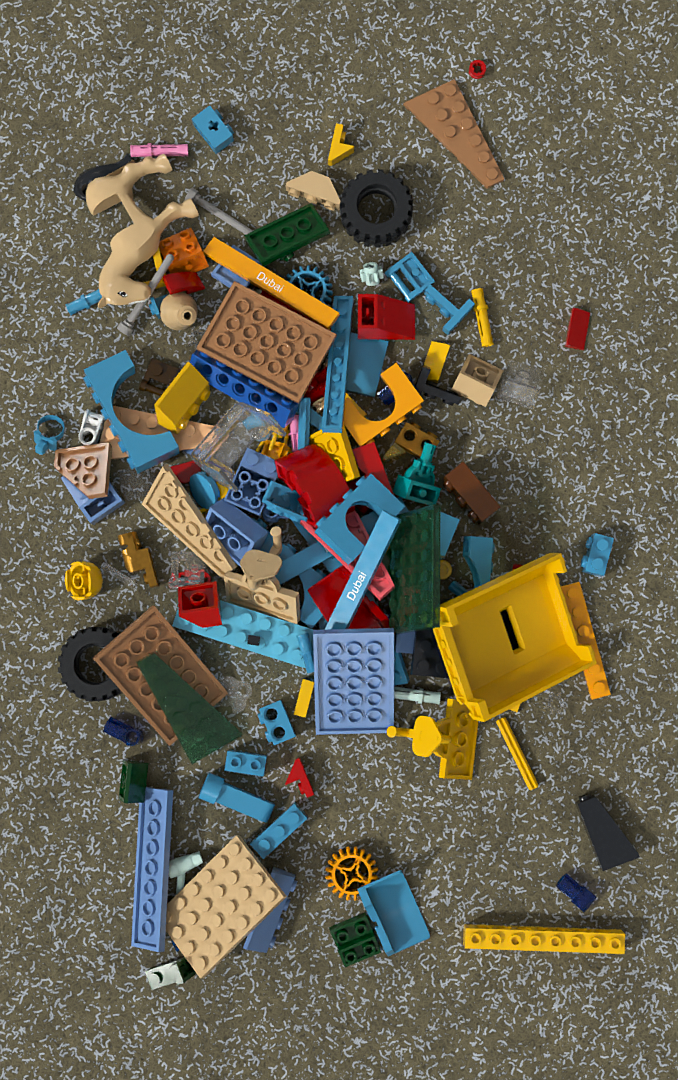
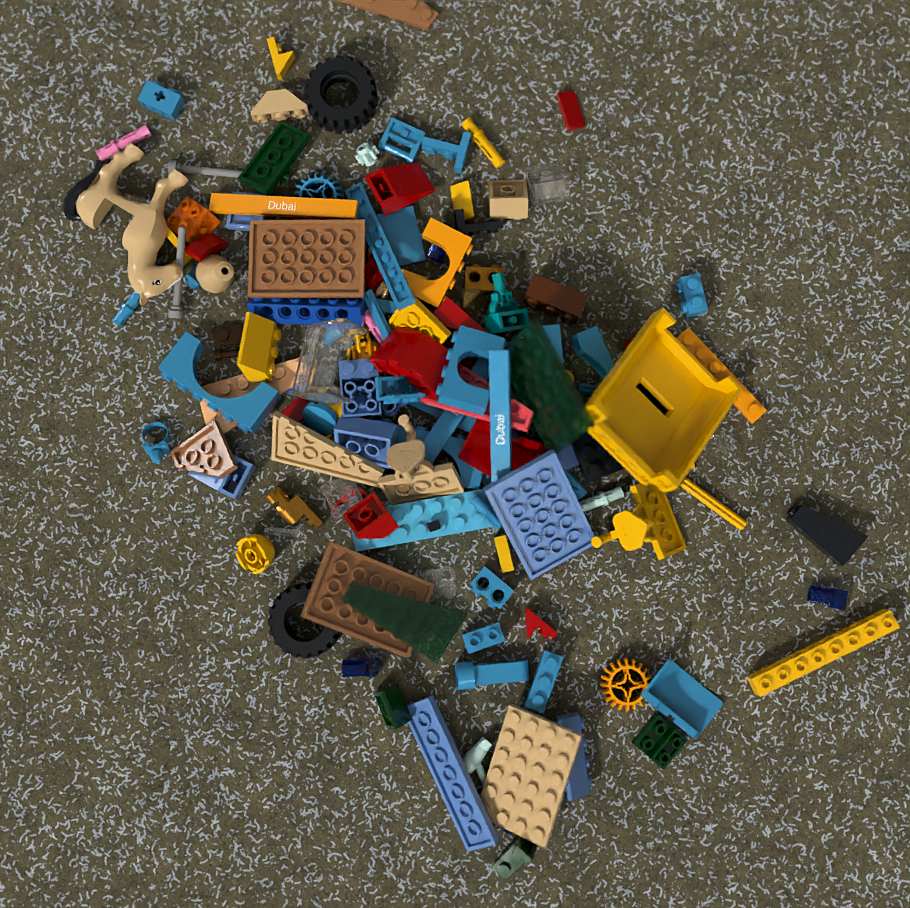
camera: 30 degrees left, 0 degrees up
(91, 424) = (190, 413): white piece -> none

